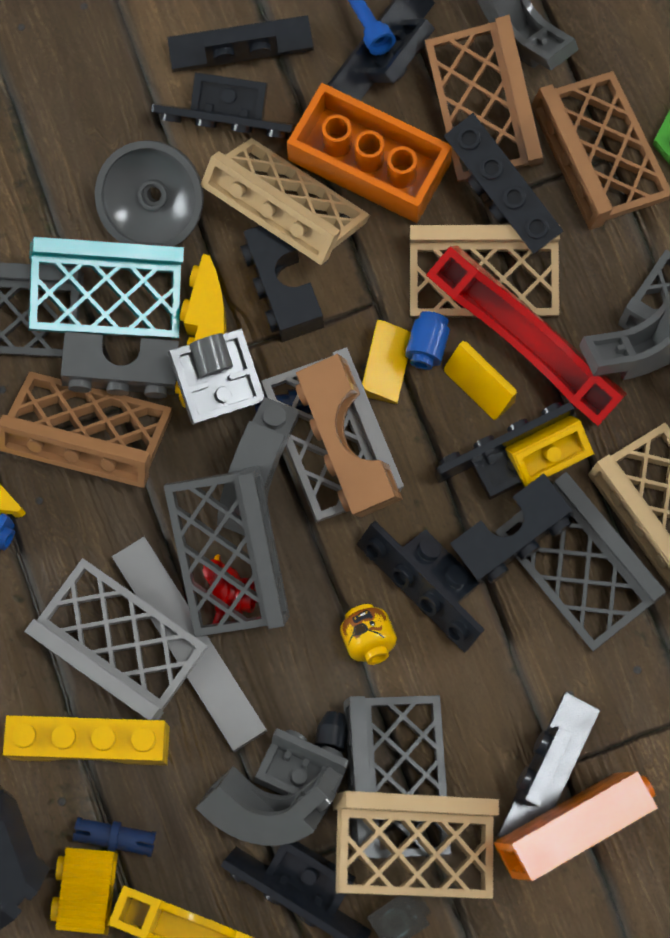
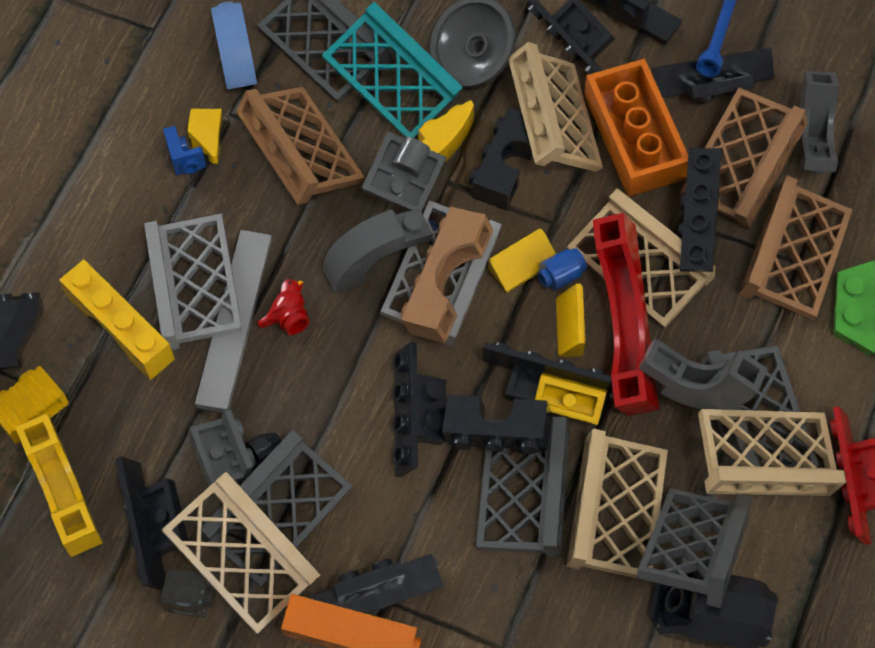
camera: 40 degrees right, 10 degrees down
(87, 367) = (335, 107): dark grey arch -> none
(114, 836) = (76, 390): dark blue pin -> none
(260, 545) = (322, 296): dark grey fence -> none
(263, 817) = (167, 450): dark grey arch -> none
(368, 634) = (344, 407): yellow head -> none

